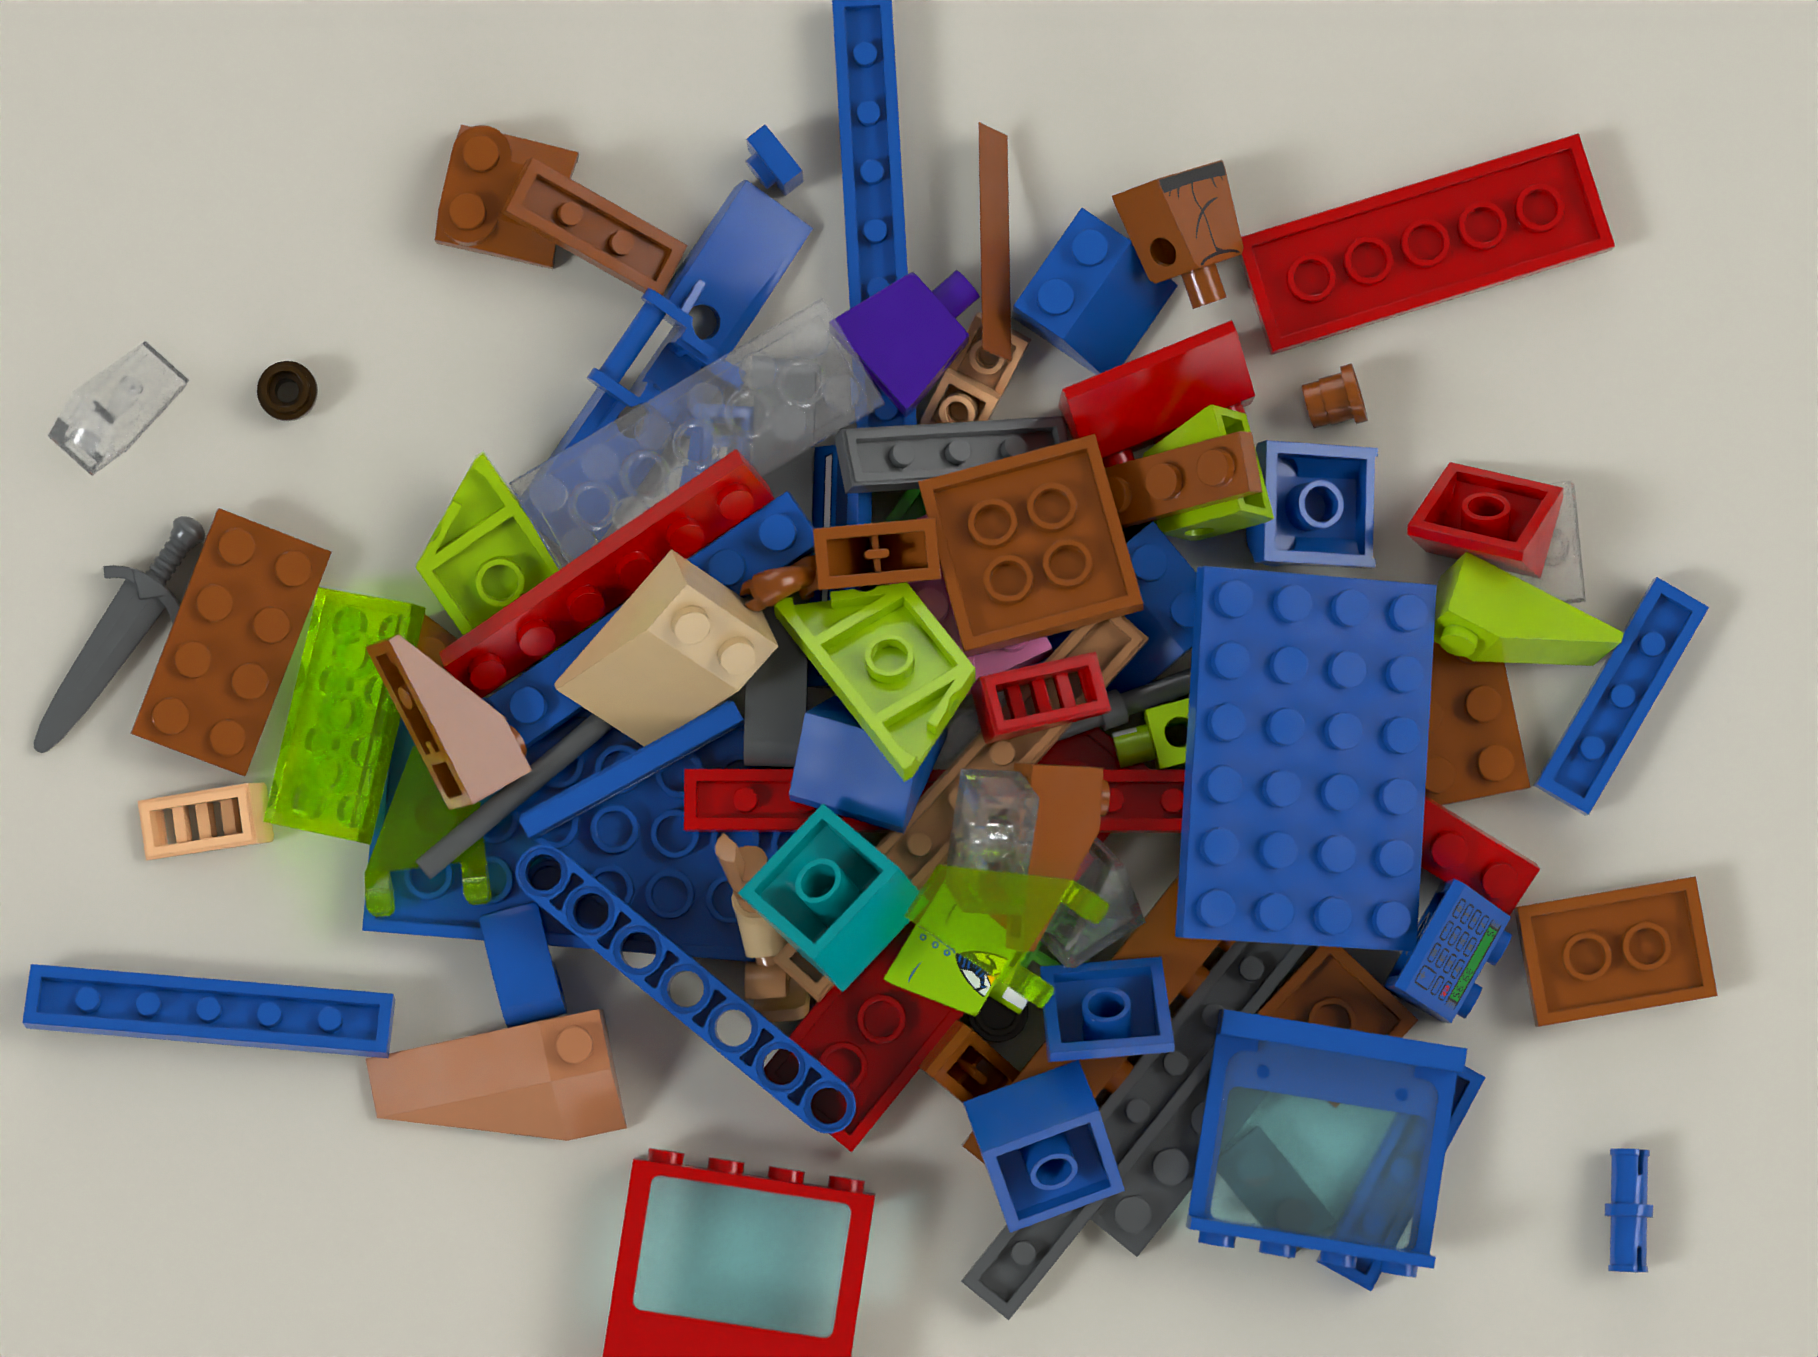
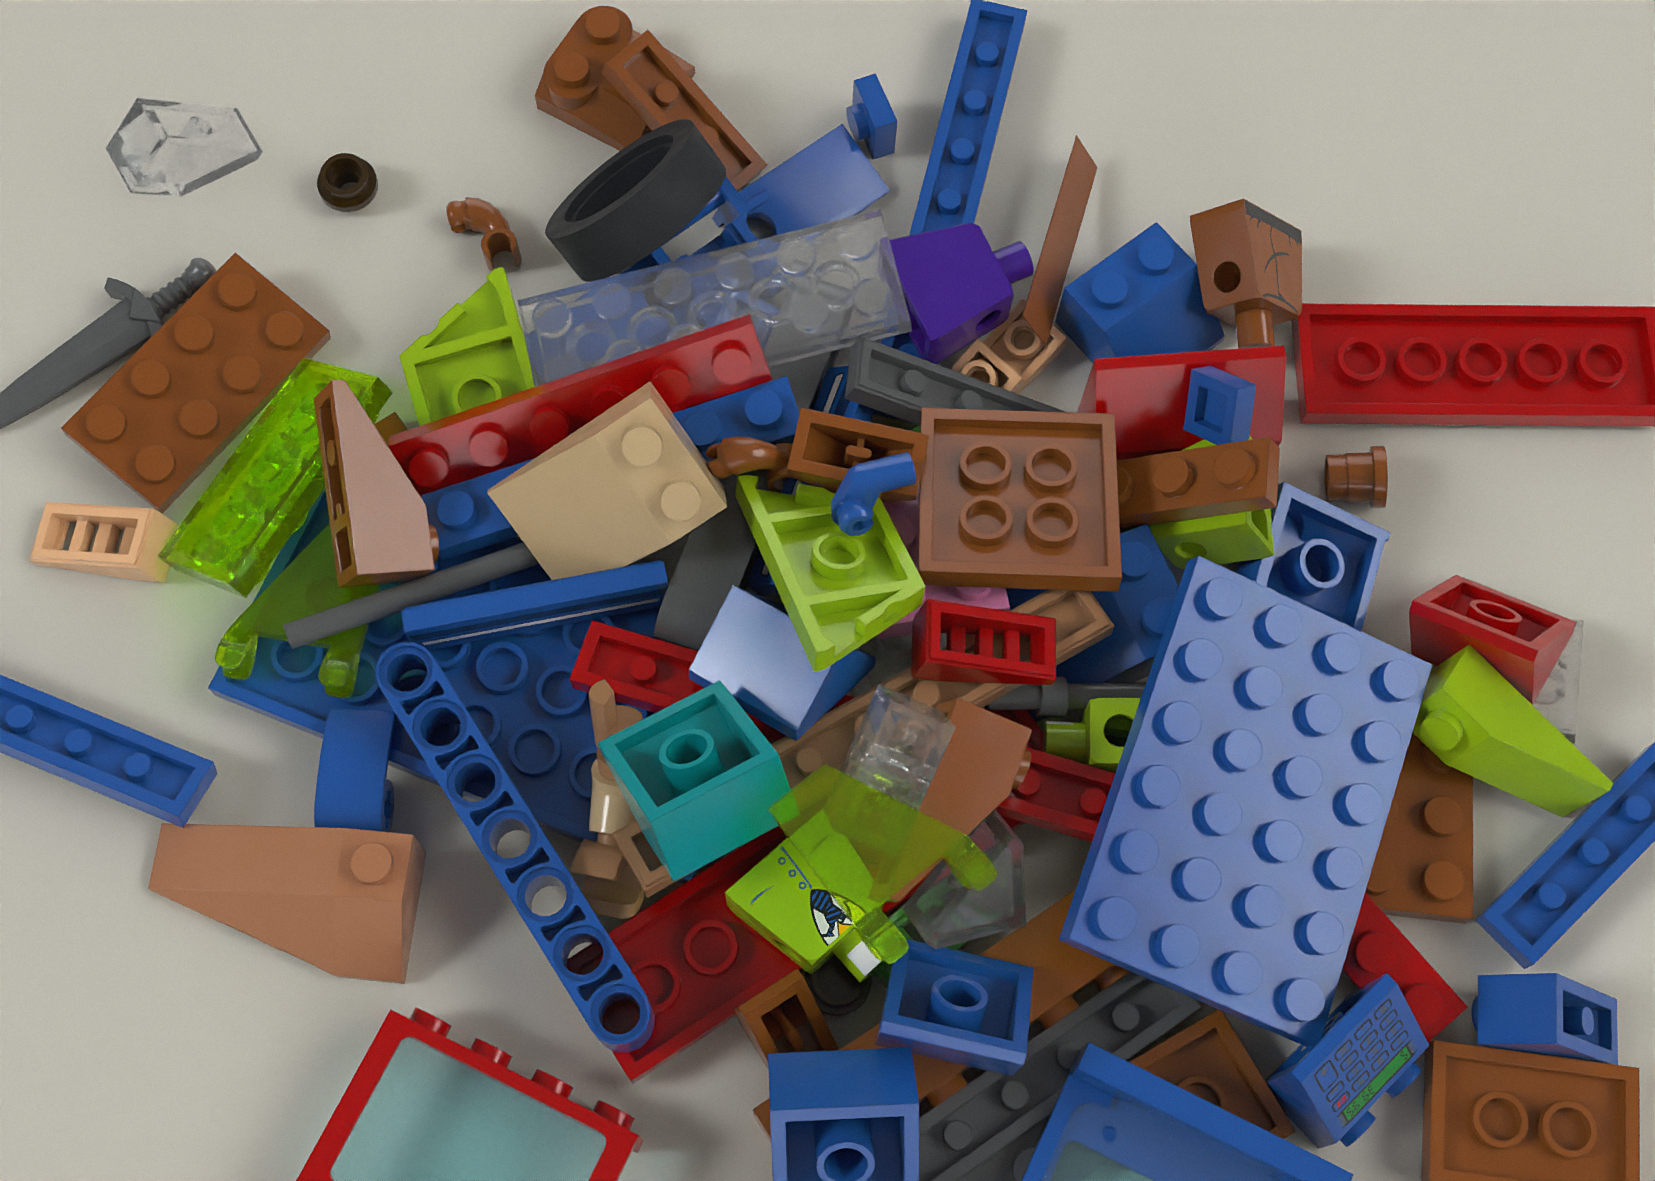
camera: 15 degrees right, 15 degrees down
(430, 385) = (484, 218): none -> dark orange arm
(619, 364) = (636, 201): none -> black tyre
(891, 591) = (862, 486): none -> blue arm
(1188, 401) = (1219, 406): none -> blue plate
(1611, 857) = (1546, 1017): none -> blue slope

